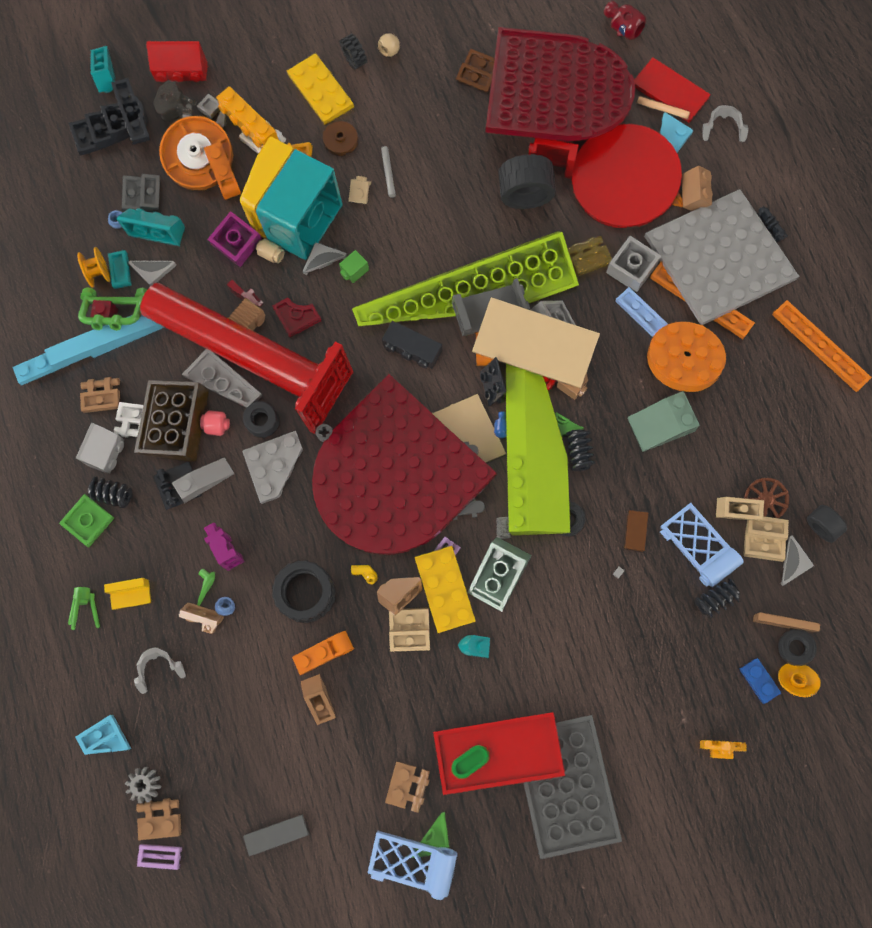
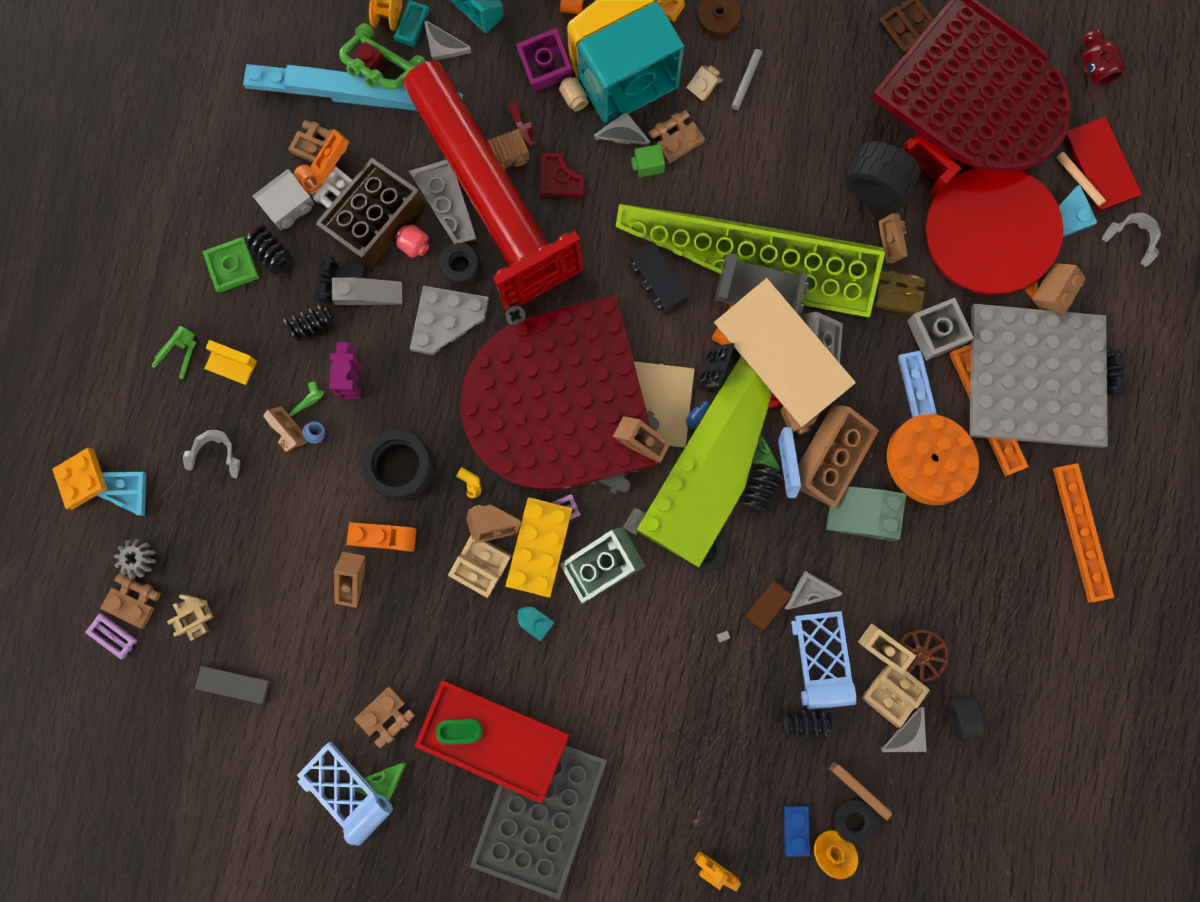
camera: 25 degrees right, 5 degrees up
(63, 750) = (79, 478): none -> light orange plate
(114, 405) = (323, 163): none -> orange plate
(172, 526) = (309, 321): none -> black piece
(218, 804) = (193, 622): none -> tan piece
(368, 240) = (680, 142): none -> medium nougat plate
(473, 462) = (641, 438): none -> medium nougat slope
(560, 221) = (892, 236): none -> medium nougat hinge
(591, 422) = (789, 462): none -> light blue tile
(615, 395) = (835, 454): none -> medium nougat slope
(659, 501) = (809, 591): none -> light grey tile

